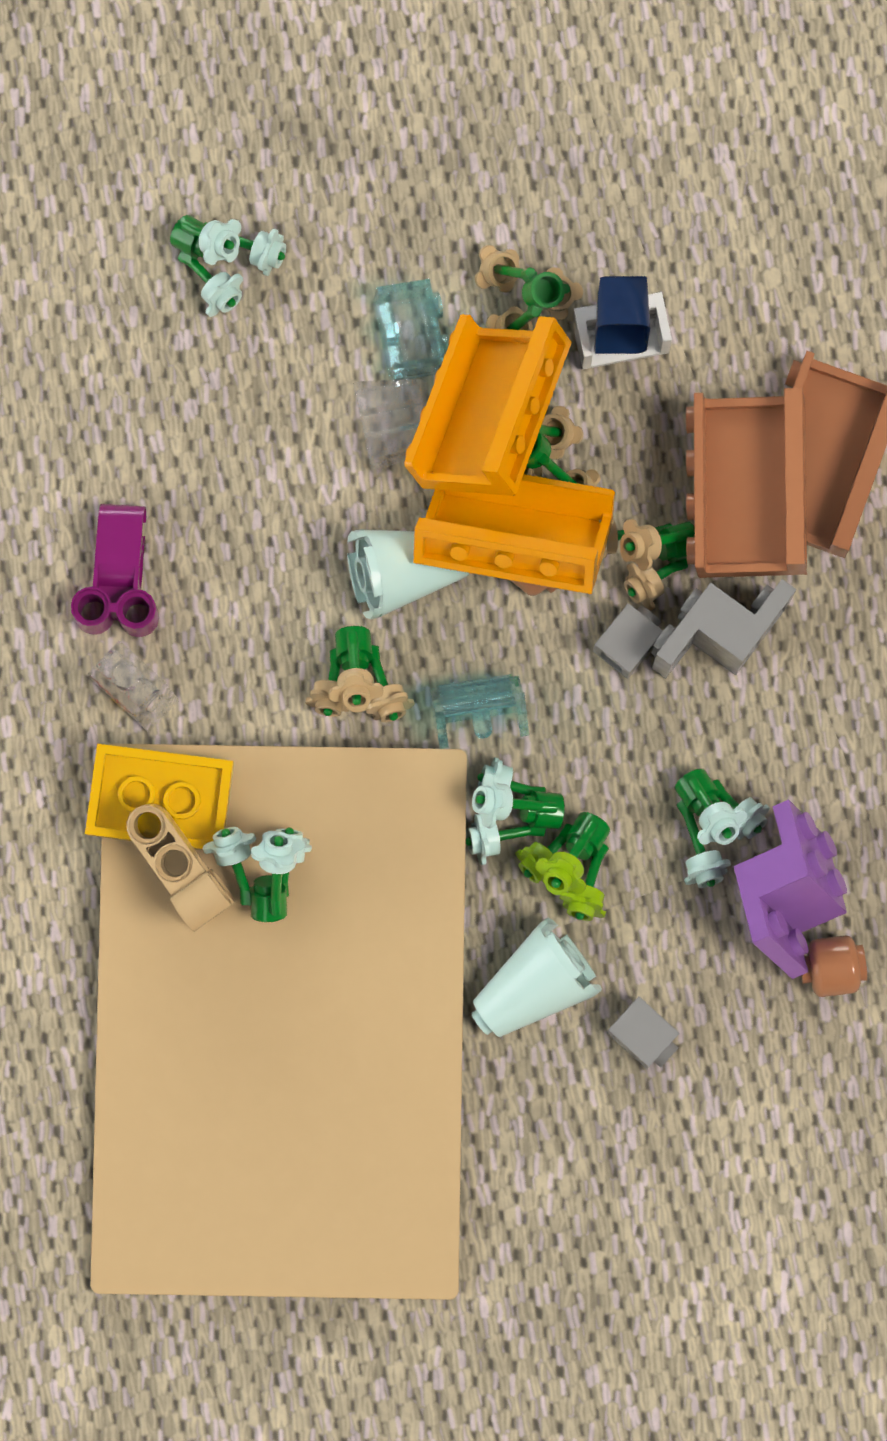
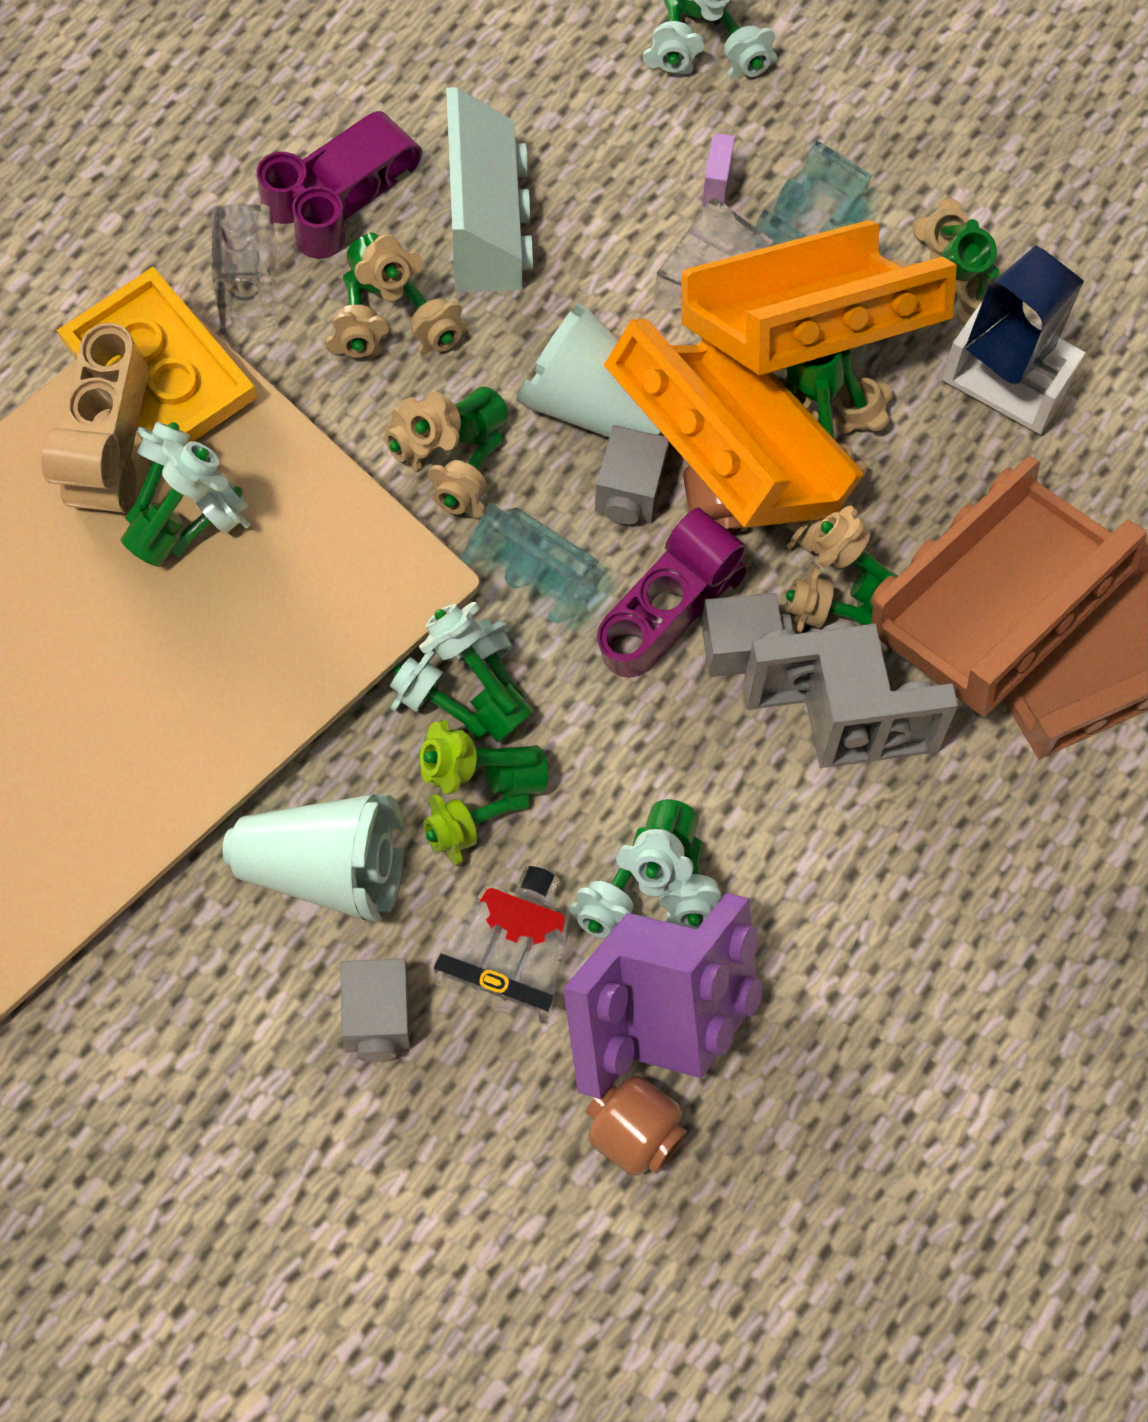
camera: 40 degrees right, 15 degrees down
(220, 506) = (486, 197): none -> light aqua slope
(227, 614) = (386, 268): none -> tan plant
(332, 355) = (718, 168): none -> lavender tile
(475, 604) = (631, 475): none -> light grey brick
(571, 627) = (699, 566): none -> magenta piece
(680, 934) = (509, 949): none -> clear torso

